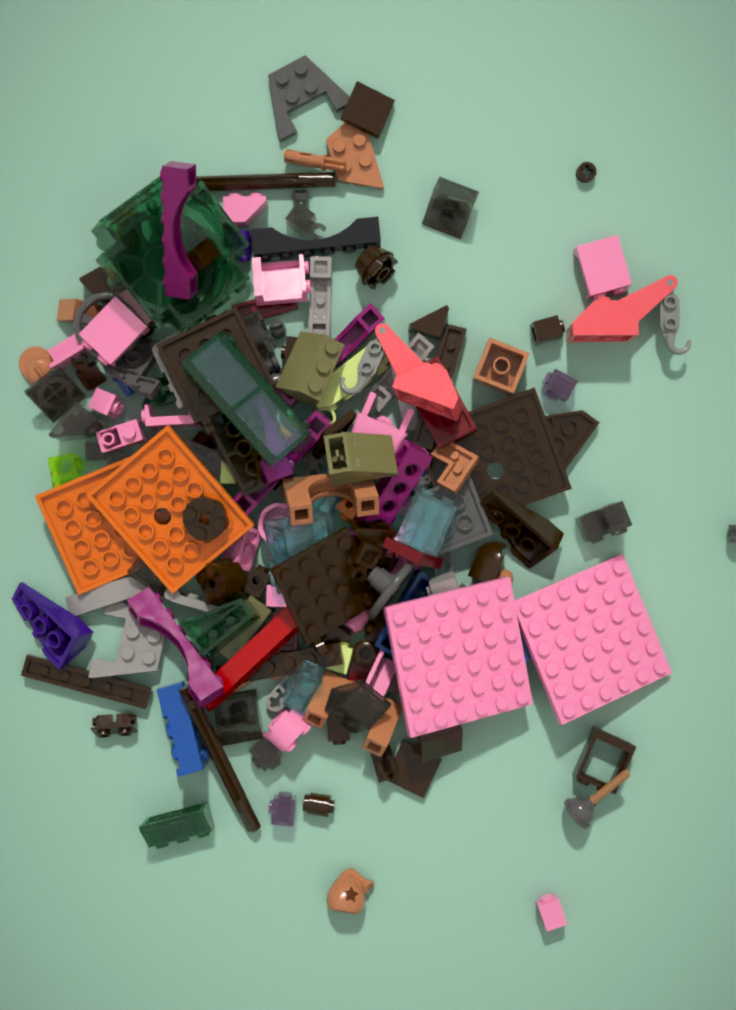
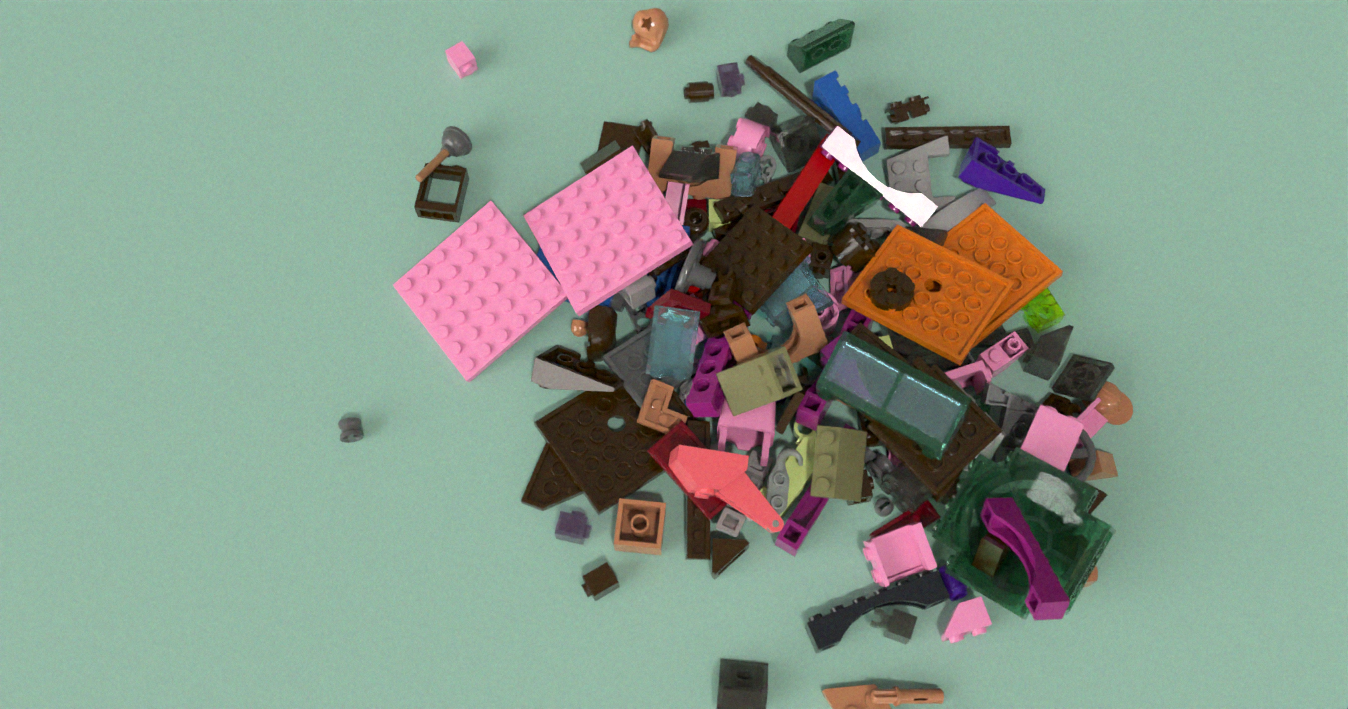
camera: 160 degrees right, 20 degrees down
(106, 403) = (1028, 381): bright pink slope -> none
(268, 181) = (963, 656): dark brown piece -> none
(300, 196) = (909, 654): dark grey hinge -> none
(320, 295) = (849, 547): light grey slope -> none
(375, 266) = (804, 596): dark brown cone -> none
(602, 521) = (493, 404): clear smoke brick -> none
(603, 267) = (556, 666): bright pink panel -> none
(619, 320) = (529, 606): coral slope -> none

